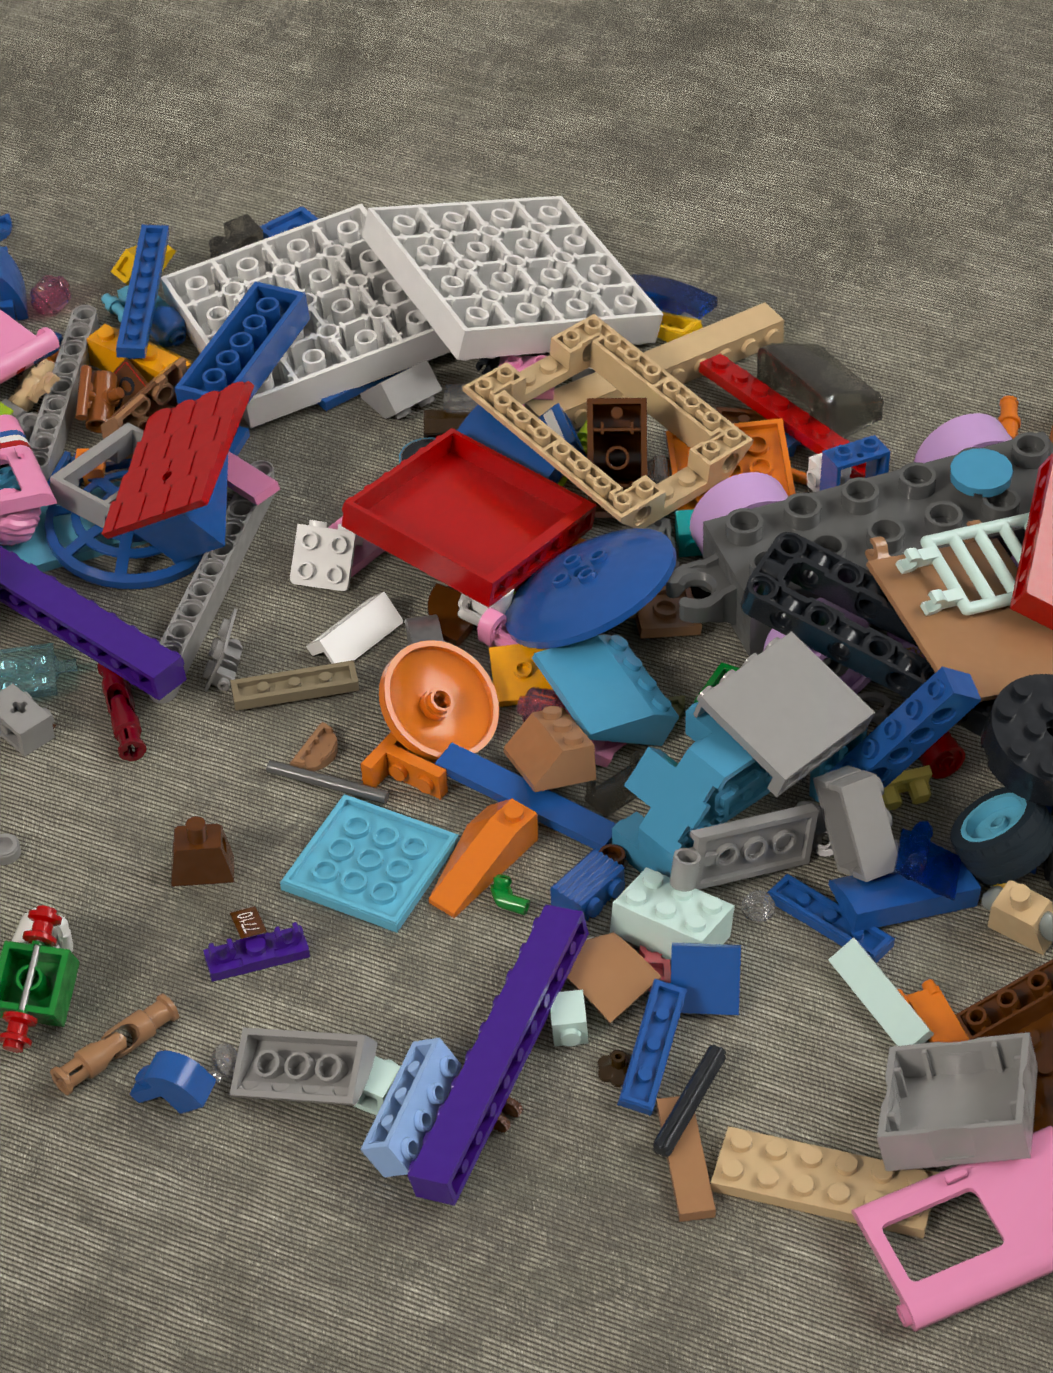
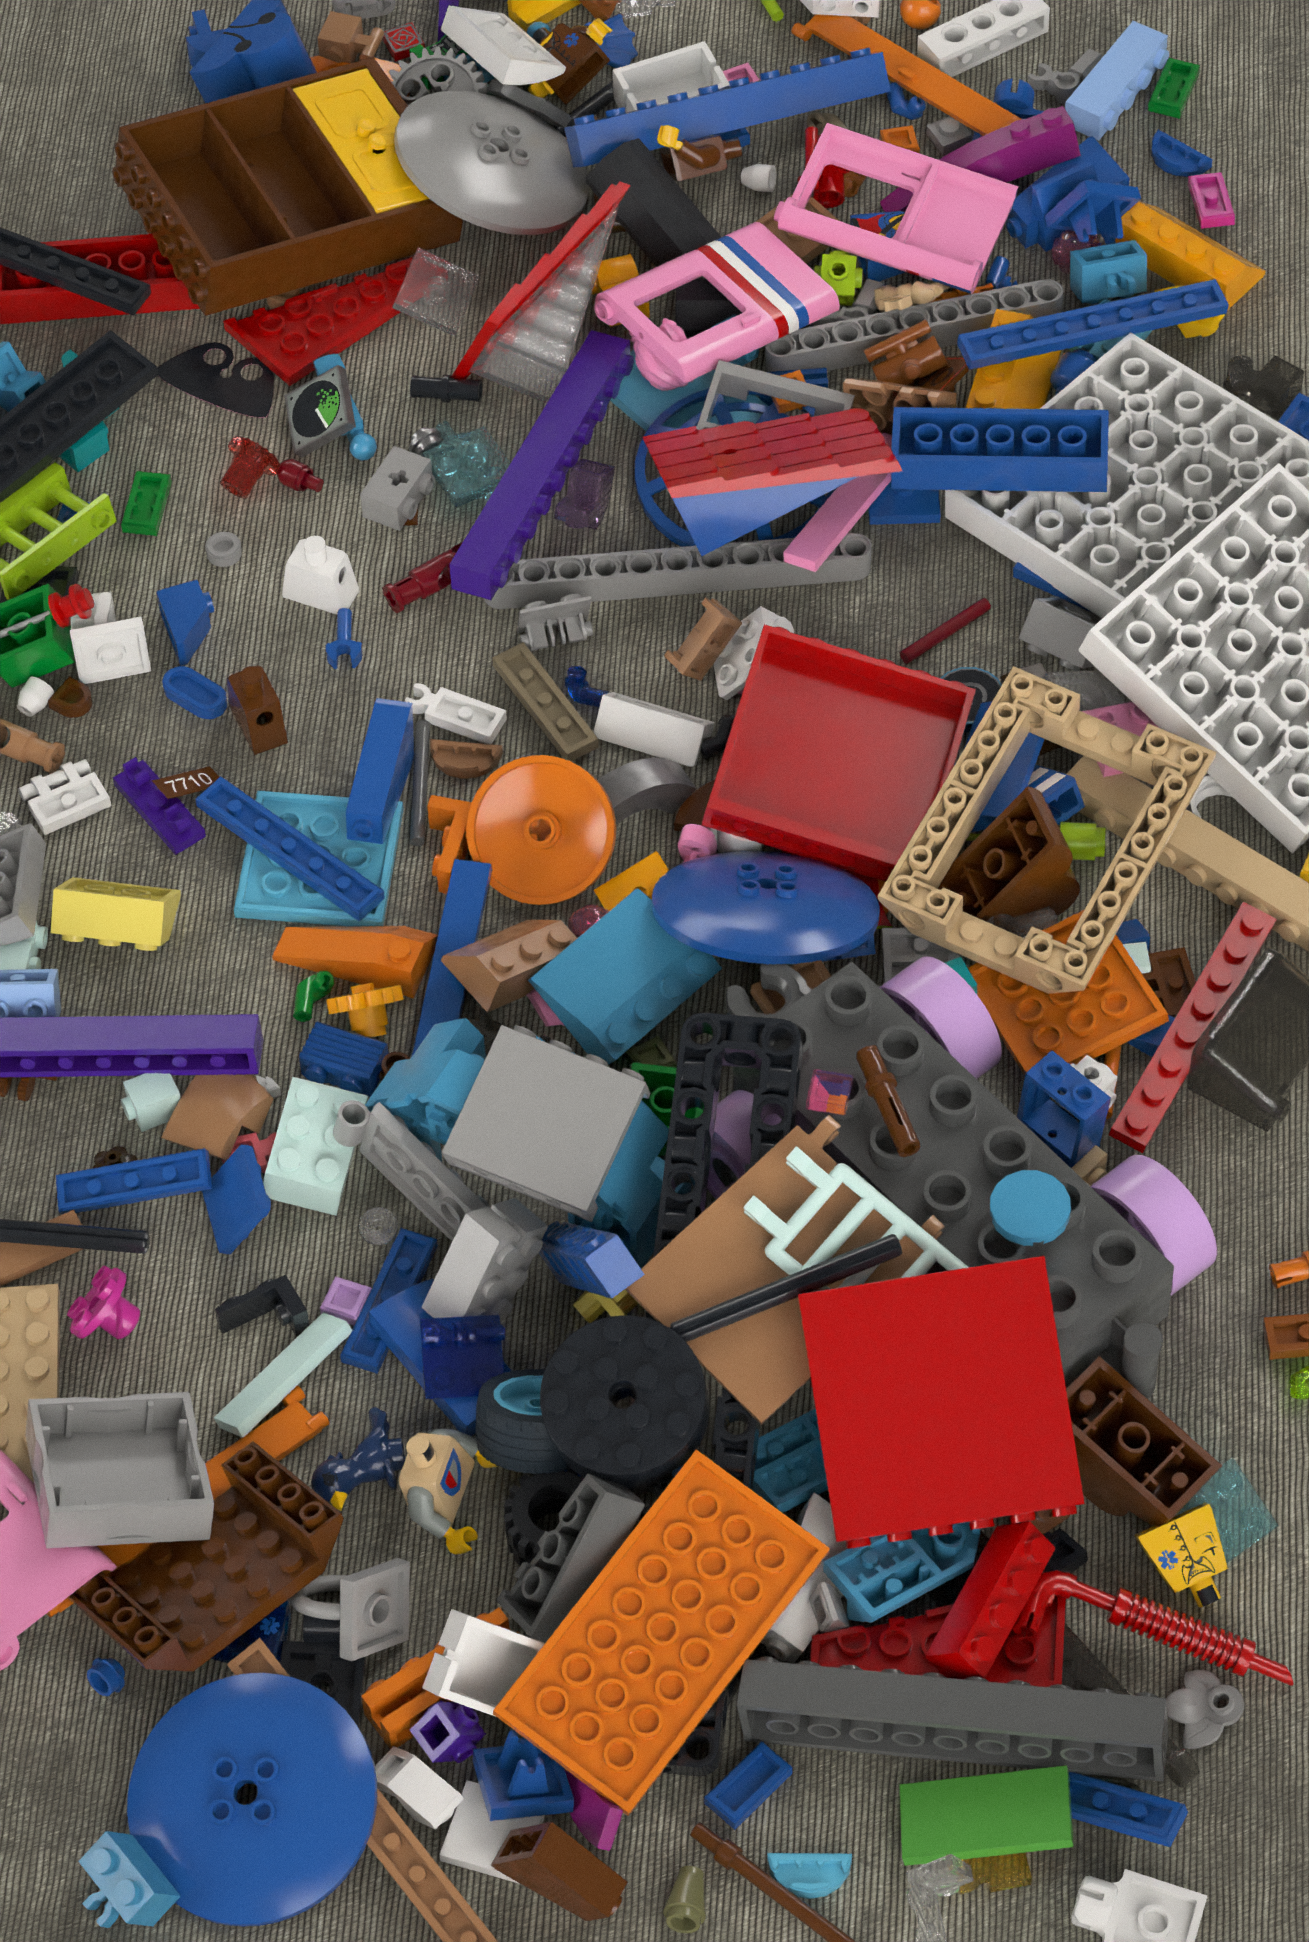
camera: 70 degrees right, 10 degrees up
(37, 262) = (1094, 210): none -> blue plate
(47, 223) = (1211, 200): none -> dark pink plate
(71, 886) = (185, 617): none -> blue slope
(85, 785) = (319, 576): none -> white torso
(86, 931) = (110, 650): none -> white tile
(87, 279) = (1108, 271): none -> dark azure brick
(88, 248) = (1185, 254): none -> light orange slope
(88, 1008) = (34, 696): none -> white hose
(103, 986) = (71, 699): none -> reddish brown tile
(108, 598) = (586, 495): none -> clear purple brick
(147, 902) = (194, 692): none -> blue tile
(157, 796) = (344, 644): none -> blue bar
(221, 1006) = (68, 802): none -> white plate
(274, 739) = (458, 713): none -> white plate
(297, 572) = (705, 640): none -> medium nougat hinge
(301, 660) = (580, 689): none -> clear blue arm
(323, 785) = (381, 771): none -> blue slope
(355, 455) = (945, 630): none -> dark red bar
(356, 871) = (290, 848): none -> blue tile
(362, 995) = (114, 913): none -> light yellow slope
(382, 585) = (716, 745): none -> black arm
(547, 854) = (366, 1007): none -> light orange plant
(769, 1093) = (104, 1307): none -> dark pink plate
(812, 977) = (268, 1296): none -> black bracket
(819, 945) = (345, 1300): none -> lavender tile
(836, 543) = (829, 1092): none -> clear pink tile
(858, 517) = (882, 1087): none -> reddish brown pin
(987, 954) = (370, 1462): none -> dark blue animal
(1005, 606) = (788, 1288): none -> black axle

